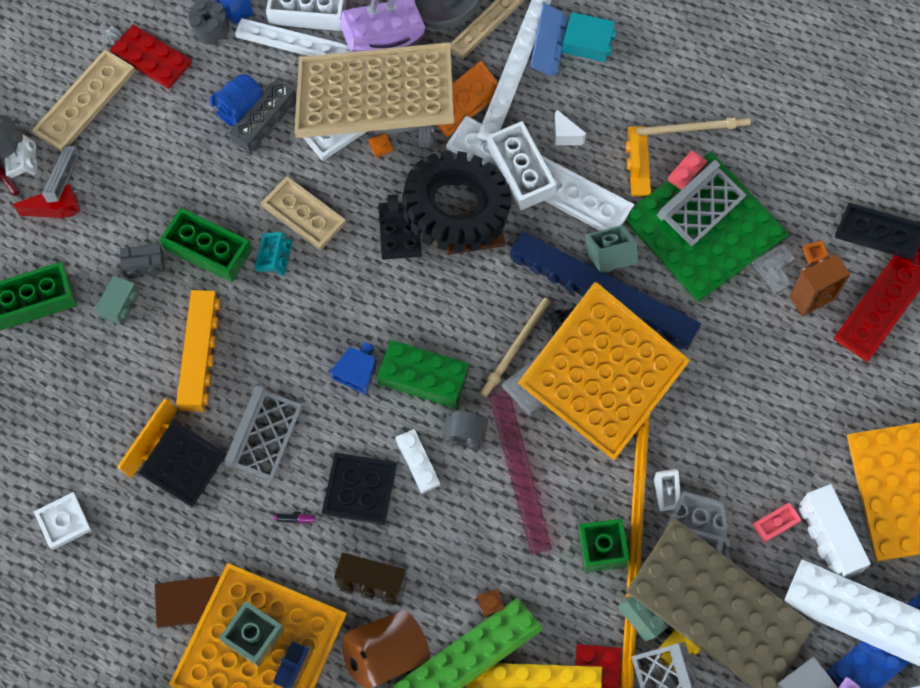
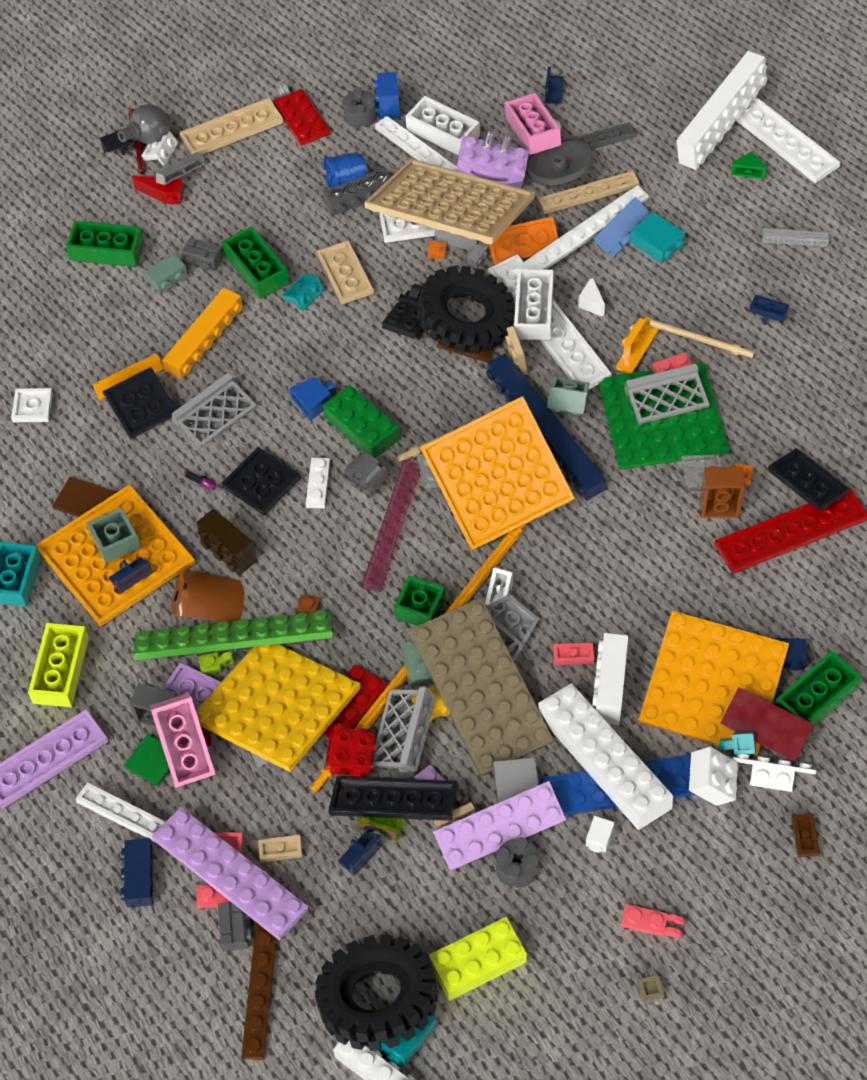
camera: 30 degrees right, 10 degrees down
(530, 221) = (515, 350): none -> tan plate
(740, 68) = (769, 308): none -> dark blue panel

